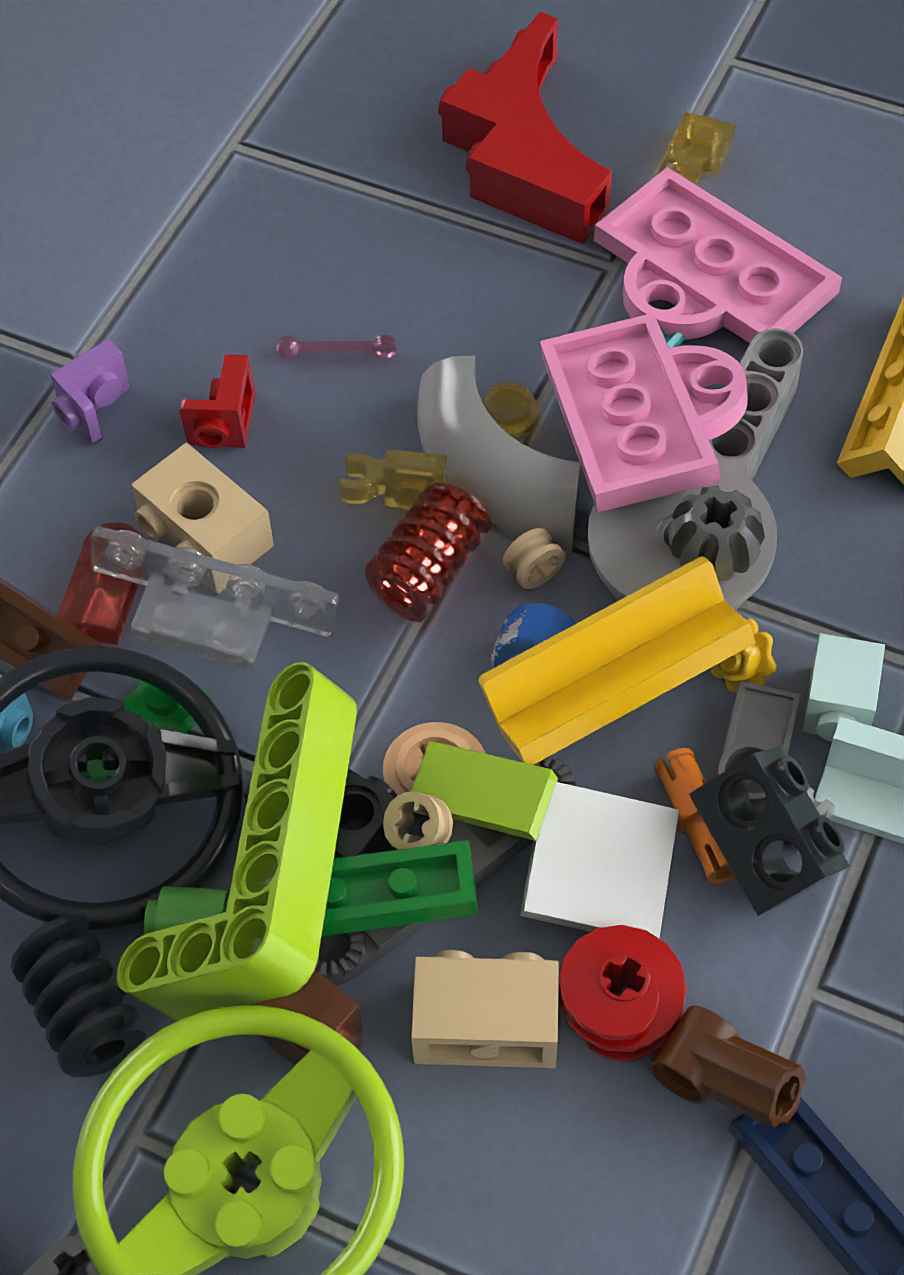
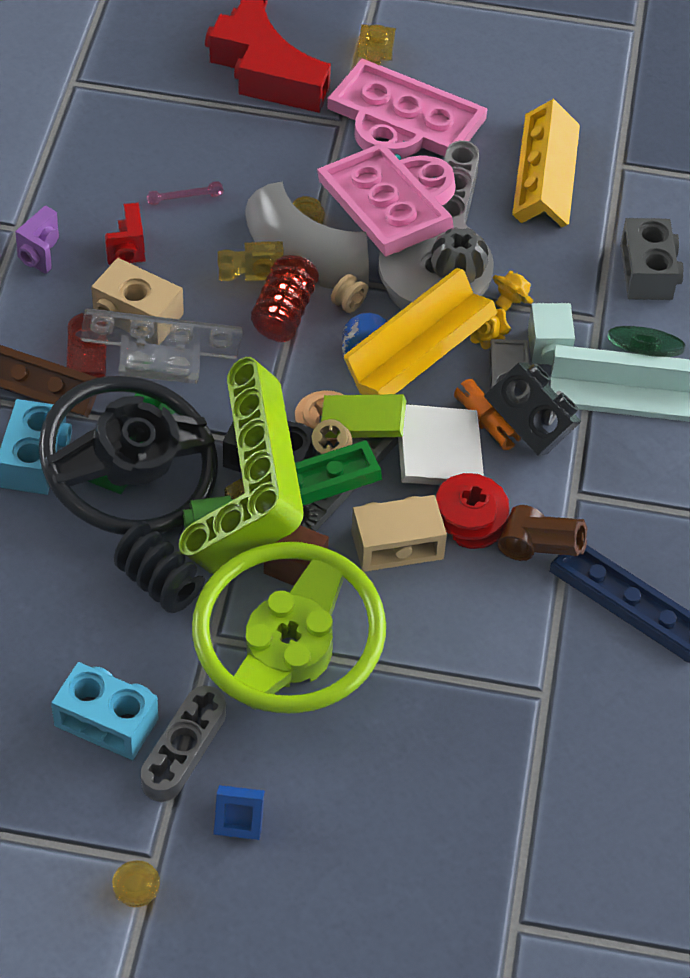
camera: 20 degrees left, 5 degrees down
(799, 597) = (512, 289): none -> yellow plant

